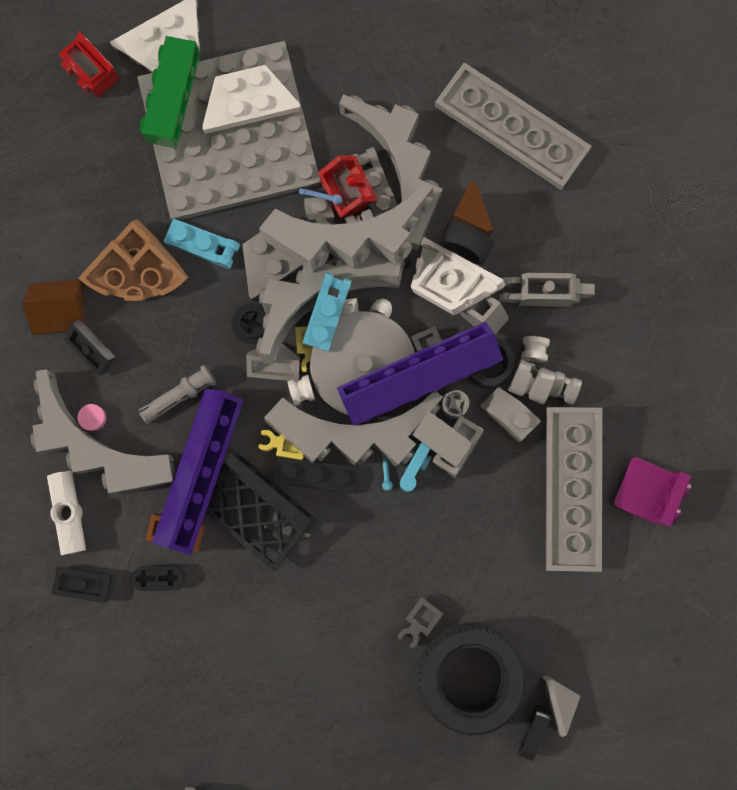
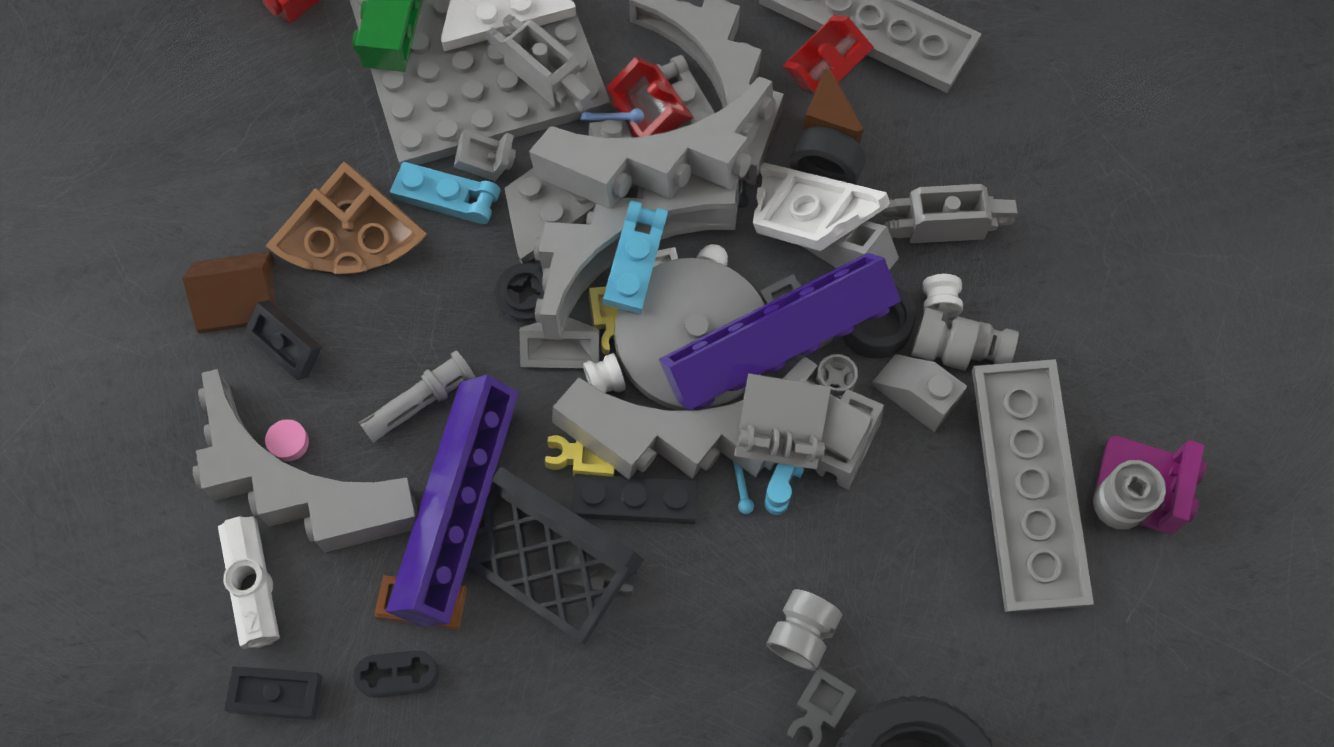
camera: 10 degrees left, 15 degrees down
(229, 218) = (484, 155): none -> light grey bracket
(272, 154) = (541, 63): none -> light grey hinge
(413, 440) = (782, 421): none -> light grey hinge
(415, 573) = (802, 633): none -> light grey wheel
(477, 159) = (833, 47): none -> red window
(635, 504) = (1129, 494): none -> light grey wheel

